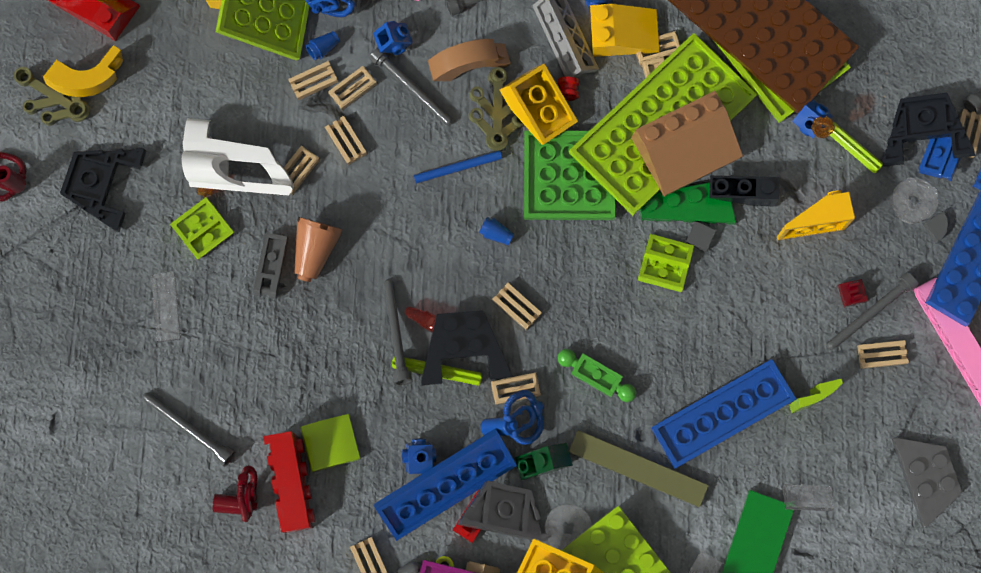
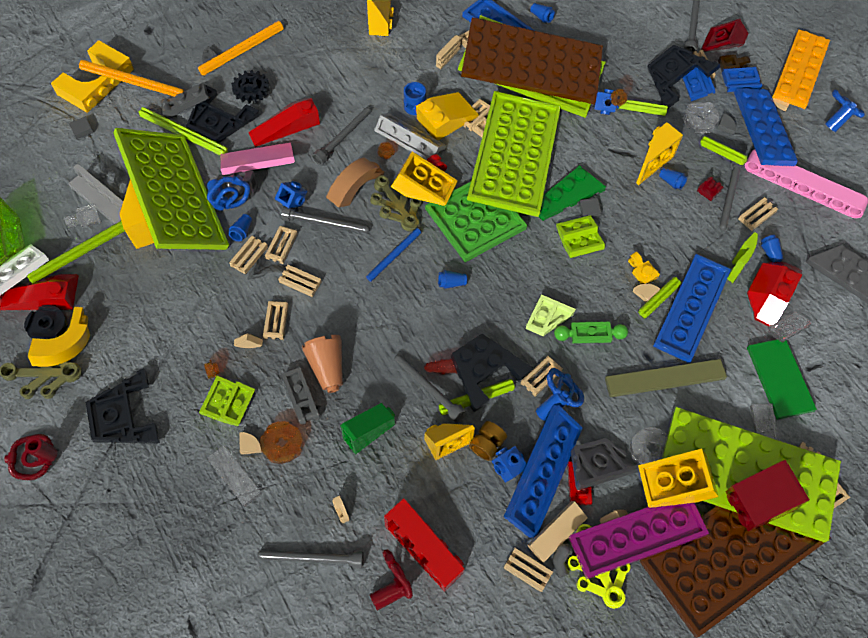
camera: 40 degrees left, 15 degrees down
(81, 57) = (50, 313): none -> black plate
(196, 284) = (249, 444): none -> tan tile
(207, 162) = (204, 345): white panel -> none
(220, 290) = (289, 451): none -> clear orange plate
(240, 397) = (340, 509): none -> tan tile
(254, 176) = (248, 341): none -> tan tile
(311, 337) = (367, 427): none -> green slope
(330, 443) = (434, 497): lime slope -> none
(374, 394) = (448, 438): none -> yellow slope
(414, 422) = (486, 443): none -> pearl gold wheel
(421, 547) = (557, 531): none -> tan tile
(502, 293) = (501, 317): tan tile -> none
(532, 34) = (386, 146): none -> clear orange plate
(544, 461) = (599, 411): dark green slope -> none
(566, 330) = (548, 315): none -> yellowish green wing
(688, 143) = (541, 151): medium nougat slope -> none
(689, 366) = (646, 291): none -> tan tile
(698, 381) = (659, 297): none -> lime axle
(704, 344) = (643, 272): none -> yellow plate
(745, 190) = (599, 162): black slope -> none
(819, 256) = (673, 178): none -> blue cone
(826, 447) = (772, 290): none -> red wedge
(863, 404) = (772, 248): none -> blue cone
(901, 258) = (723, 150): none -> lime axle

